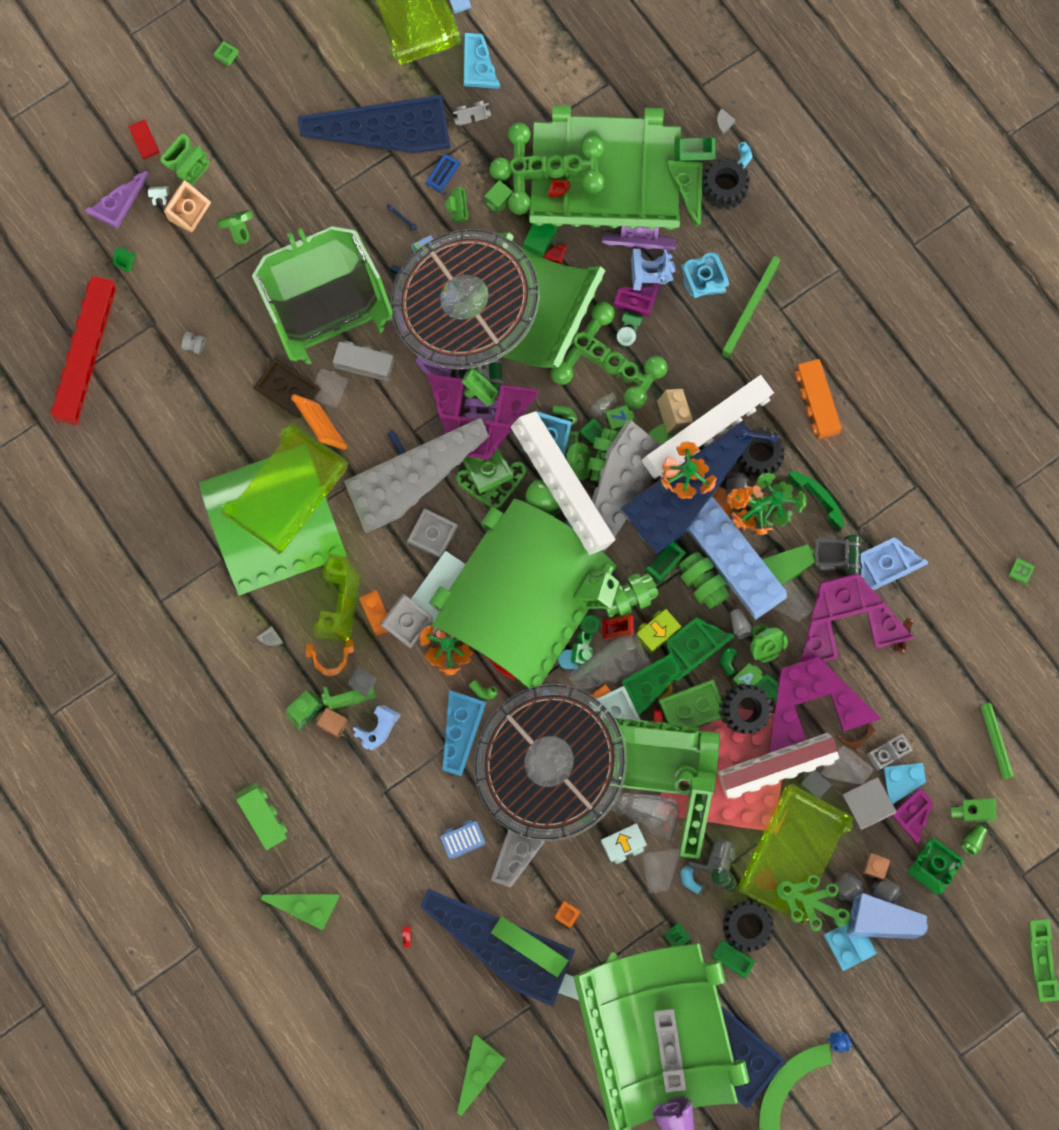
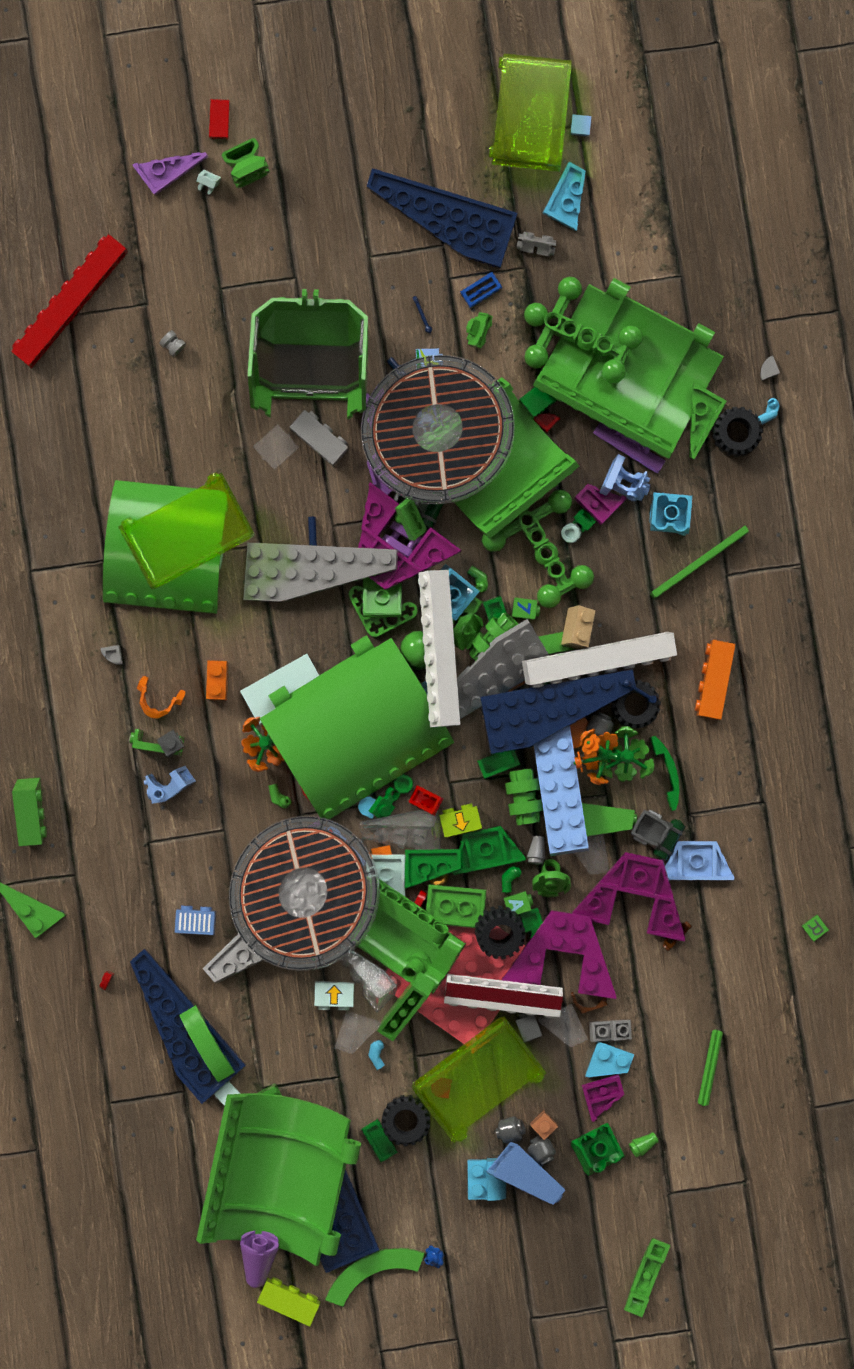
camera: 25 degrees right, 10 degrees up
(123, 259) = (146, 230): green tile -> none
(186, 207) = (227, 208): light nougat slope -> none
(226, 53) = (336, 69): bright green tile -> none
(237, 225) = (265, 248): bright green tile -> none
(282, 382) = (237, 429): dark brown tile -> none
(304, 709) = (112, 735): bright green torso -> none
(319, 422) = (248, 481): orange bar -> none
(331, 722) = (130, 759): nougat brick -> none
(339, 571) = (180, 677): clear neon green windscreen -> none
(406, 621) = (239, 702): light grey tile -> none
(432, 533) = (303, 630): light grey tile -> none
(462, 724) = (243, 820): dark azure wing -> none
(481, 1067) = (115, 1124): bright green wing -> none
(497, 197) = (519, 340): bright green brick -> none
(558, 188) = (580, 360): red tile -> none
(567, 914) = (254, 1030): orange tile -> none
(598, 589) = (424, 760): bright green torso -> none
(602, 405) = (515, 588): clear cone -> none
(637, 592) = (456, 776): bright green piece -> none
(670, 1050) = (282, 1194): light grey slope -> none
(677, 936) = (340, 1097): green tile -> none
(692, 469) = (563, 696): orange plant -> none
(694, 149) = (725, 385): green panel -> none
(719, 864) = (407, 1056): dark grey piece -> none
(810, 901) = (470, 1127): bright green plant -> none
(869, 803) = (567, 1067): light grey tile -> none
(985, 810) = (665, 1125): bright green torso -> none

